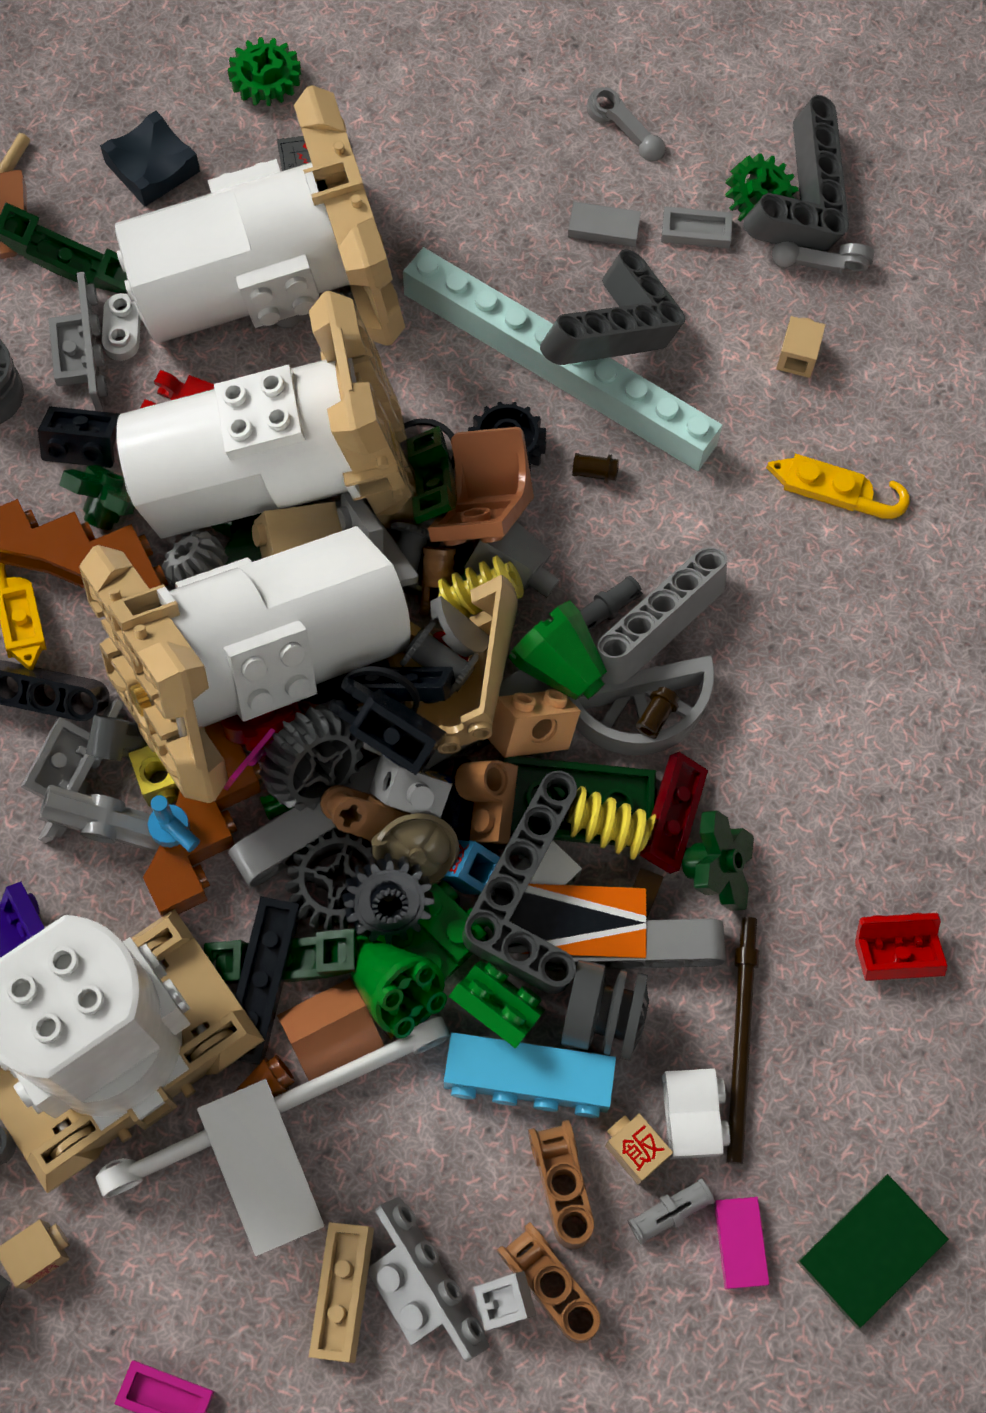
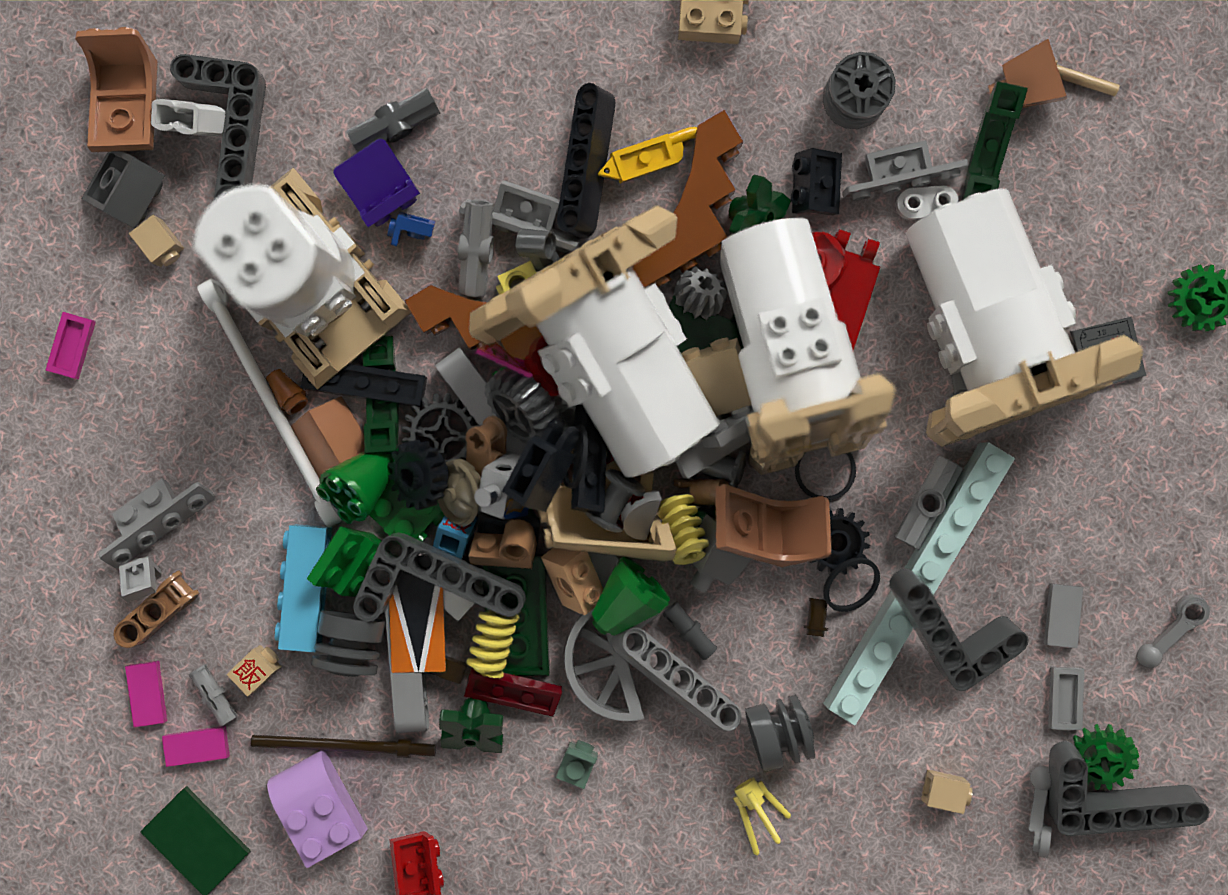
camera: 85 degrees right, 20 degrees up
(64, 898) = (416, 227): none -> blue bracket
(150, 159) = (1098, 206): black brick -> none
(170, 825) = (464, 301): dark azure piece -> none
(260, 1167) = (226, 396): white sticker -> none
(341, 1292) = (143, 462): tan plate -> none
(433, 475) = (787, 483): dark green slope -> none
(452, 333) = (937, 484): none -> light grey piece
(546, 437) = (841, 567): none -> black piece
(557, 1155) = (246, 610): medium nougat piece -> none
(654, 717) = (587, 677): dark brown pin -> none
(667, 1311) = (146, 694): none -> dark pink tile
(694, 1113) = (282, 710): white brick -> none
(731, 505) = (780, 733): none -> dark grey wheel
(767, 745) = (577, 763): none -> sand green bracket
(807, 547) = (750, 795): none -> light yellow plant
(824, 1074) = (315, 808): none -> lavender brick
(836, 486) = (814, 821): yellow plate -> none

